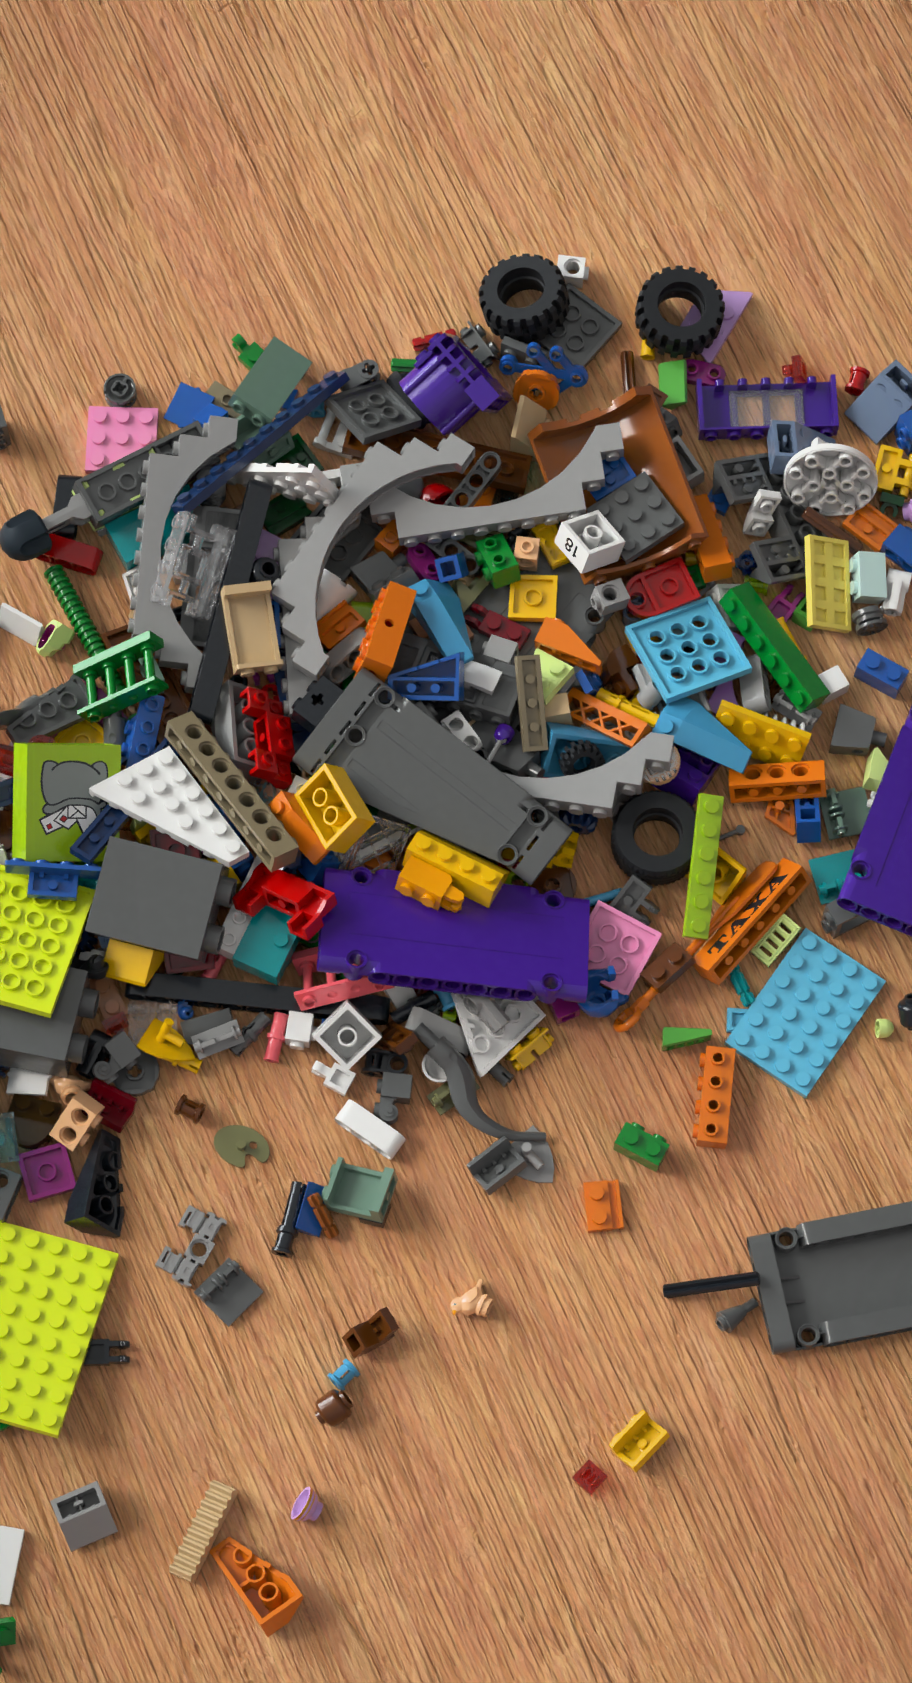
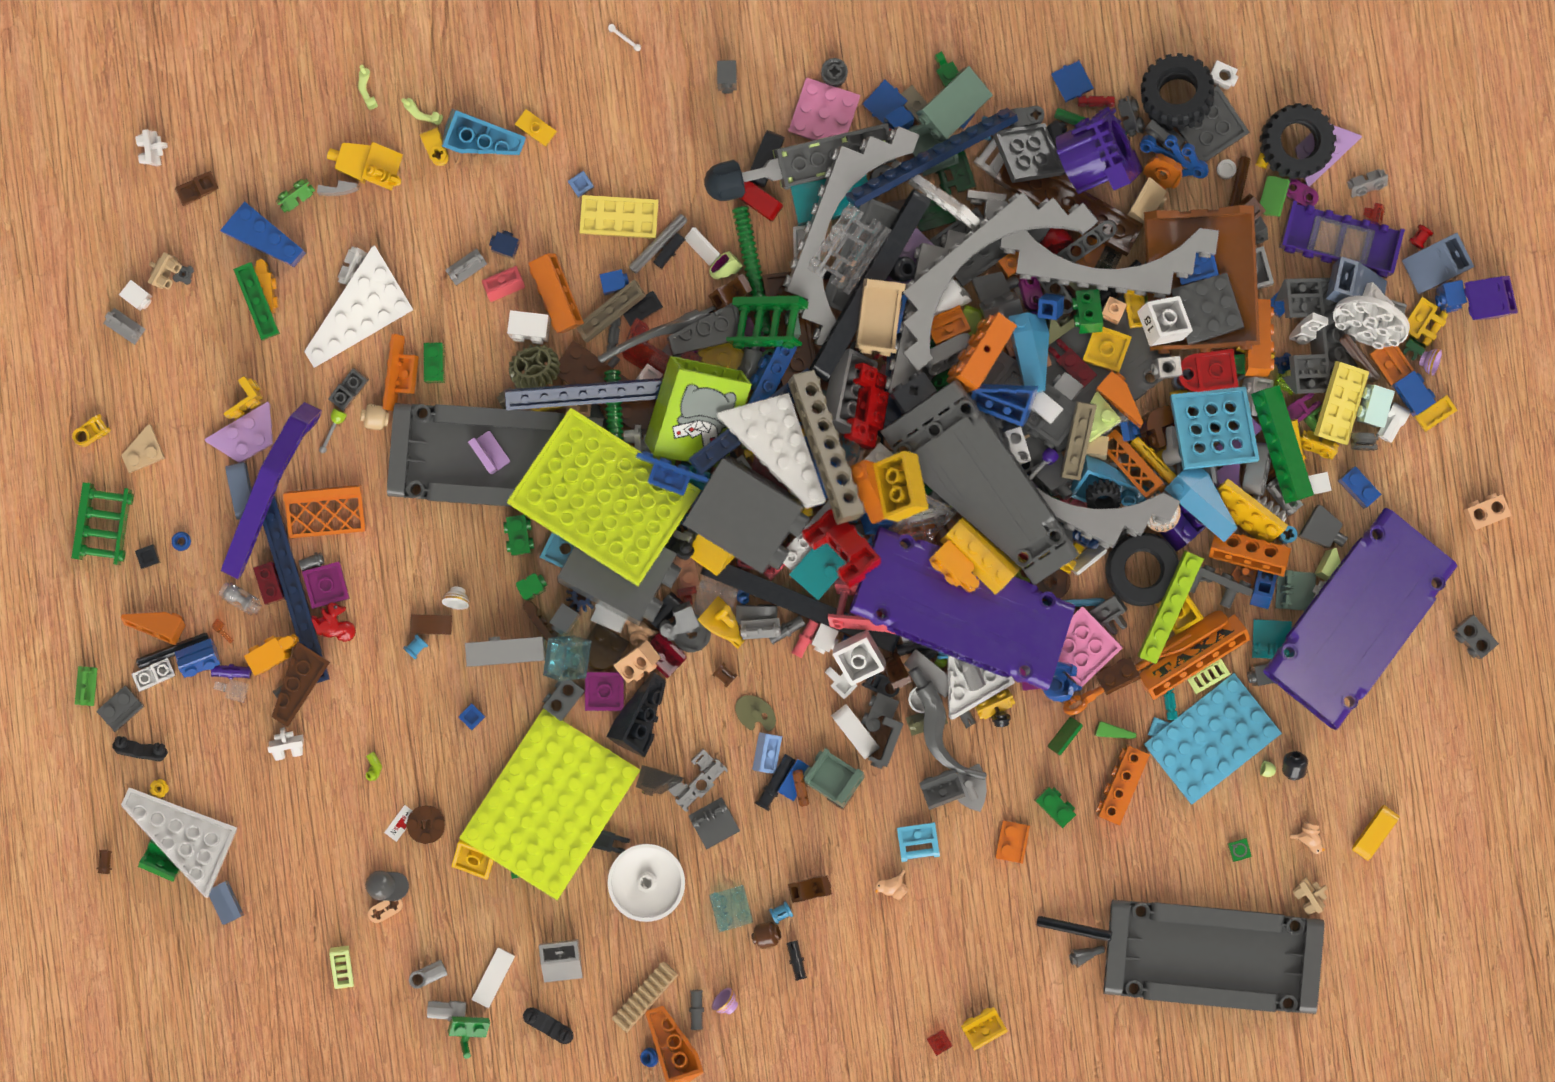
camera: 15 degrees right, 15 degrees up
(61, 669) = (736, 288): none -> reddish brown brick
(90, 1604) = (548, 1025): none -> black piece
(142, 1257) = (656, 781): none -> clear smoke slope
(164, 1386) = (646, 882): none -> white dish
(226, 1603) = (649, 1057): none -> blue plate
(269, 1188) = (767, 753): none -> light blue slope
(273, 1527) = (696, 1009): none -> dark grey pin
(279, 1389) = (731, 908): none -> clear light blue hinge
(380, 1428) = (796, 960): none -> black pin
(400, 326) = (1072, 81): none -> blue piece
(411, 1104) = (890, 745): none -> dark grey panel
(484, 1231) = (918, 835): none -> medium azure plate
(542, 1062) = (1001, 719): none -> black plate
(588, 847) = (1087, 558): none -> white slope
(608, 371) = (1226, 169): none -> white tile
(627, 1060) = (1065, 736): none -> green slope
(759, 821) = (1232, 586): none -> dark grey plate
(784, 336) = (1376, 181): none -> light grey hinge
(820, 746) = (1292, 531): none -> dark azure bush
(825, 643) = (1325, 448): none -> yellow hinge
(881, 1133) = (1239, 850): none -> green tile

